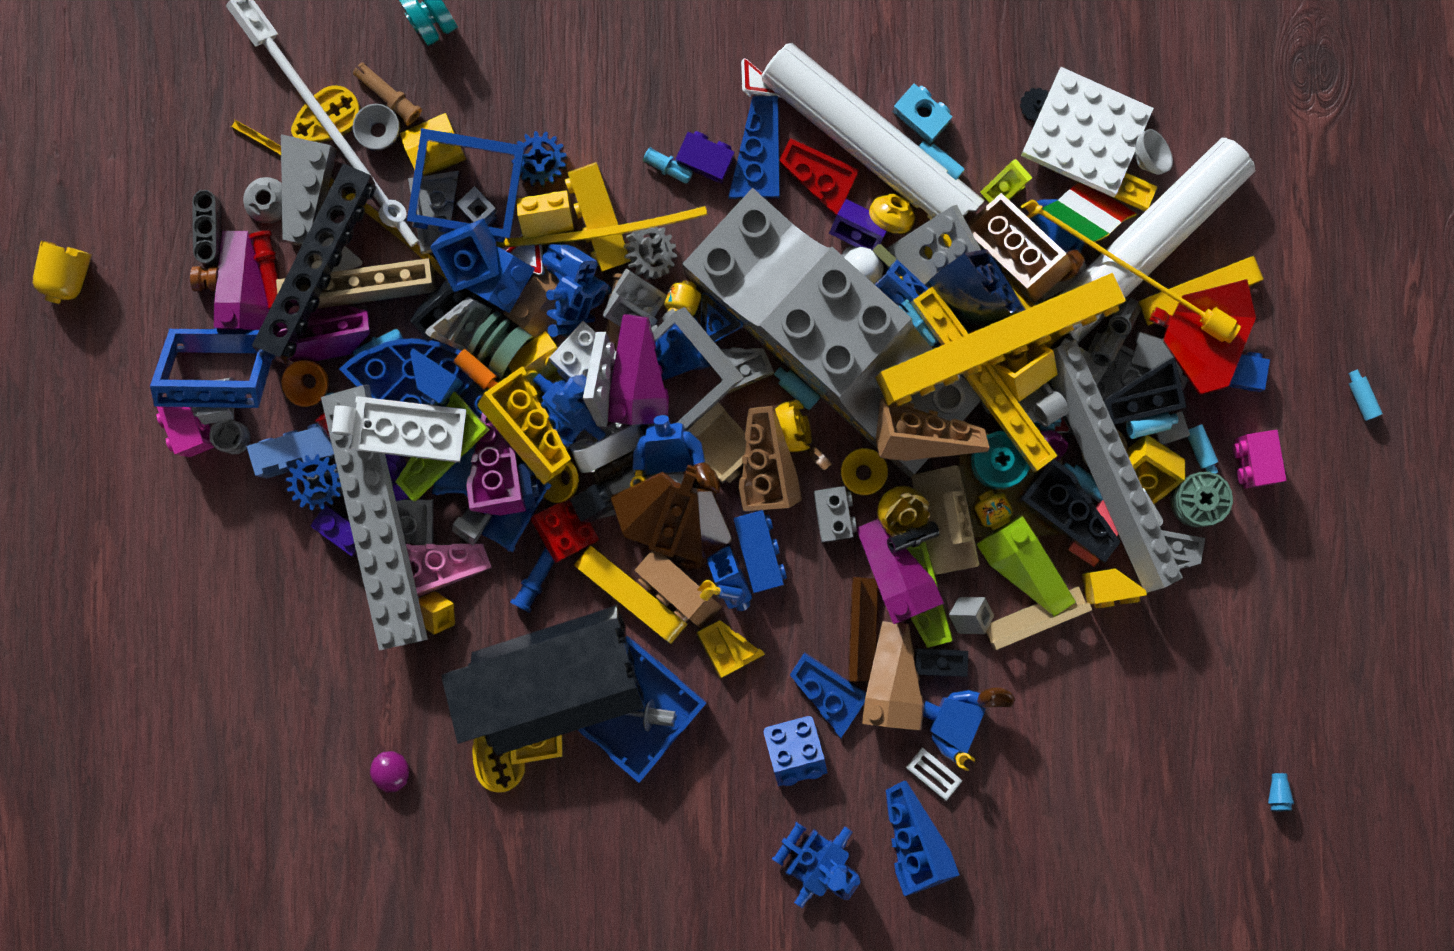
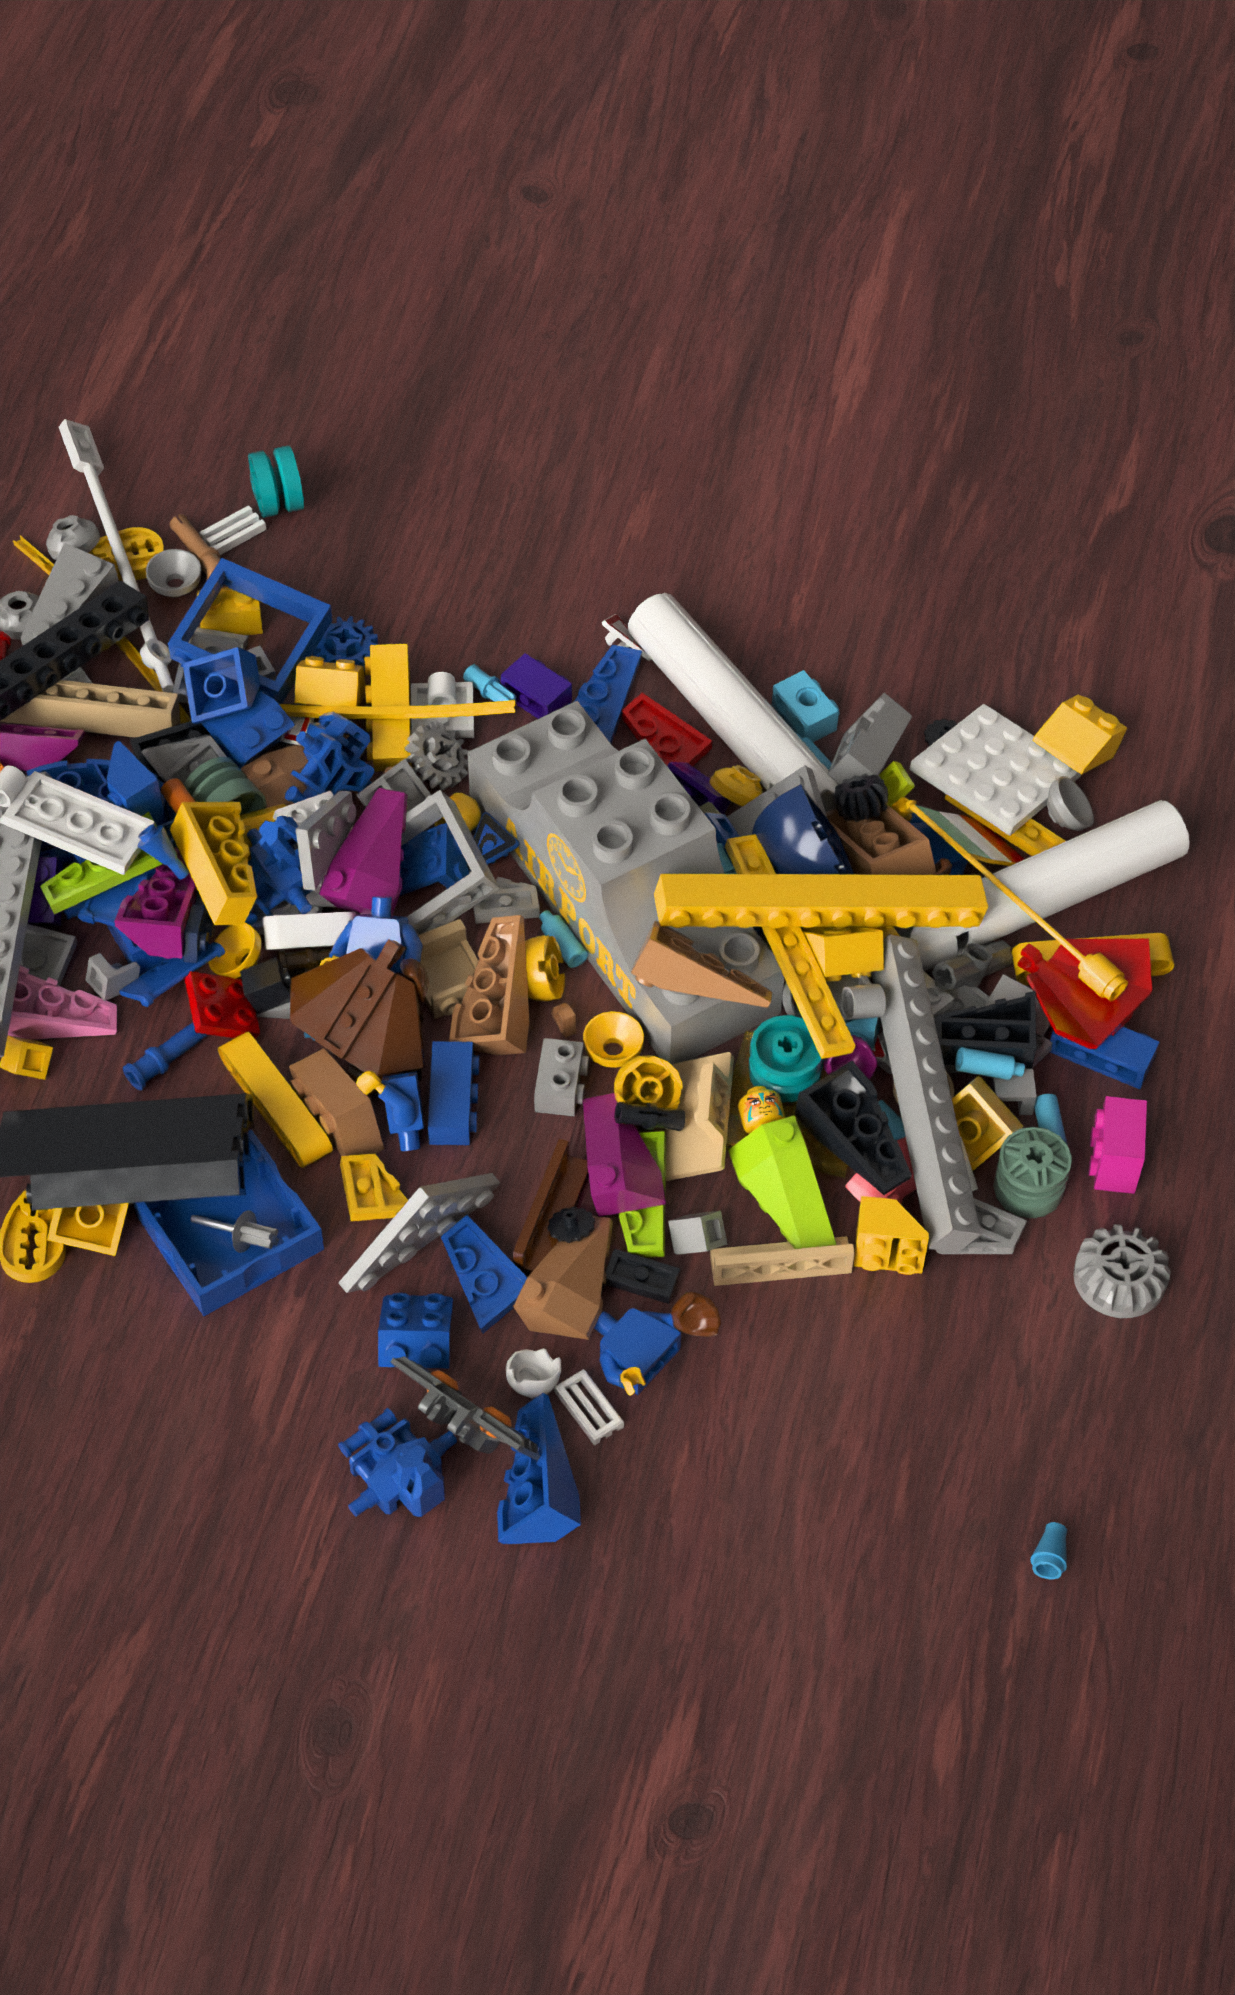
camera: 10 degrees right, 30 degrees down
(286, 119) = (74, 532): none -> light grey piece
(398, 57) = (229, 528): none -> white tile
(477, 433) = (158, 845): none -> blue cone
(636, 196) = (444, 691): none -> white plate
(779, 680) = (421, 1220): none -> light grey plate
(866, 827) = (476, 1426): none -> dark grey piece
(881, 639) = (571, 1224): none -> black piece
(889, 764) = (533, 1372): none -> white hair
(987, 152) = (870, 740): none -> light grey wedge
(998, 213) = (861, 797): none -> black gear
(1146, 83) = (1081, 734): none -> yellow slope
(1259, 562) = (1124, 1281): none -> light grey gear

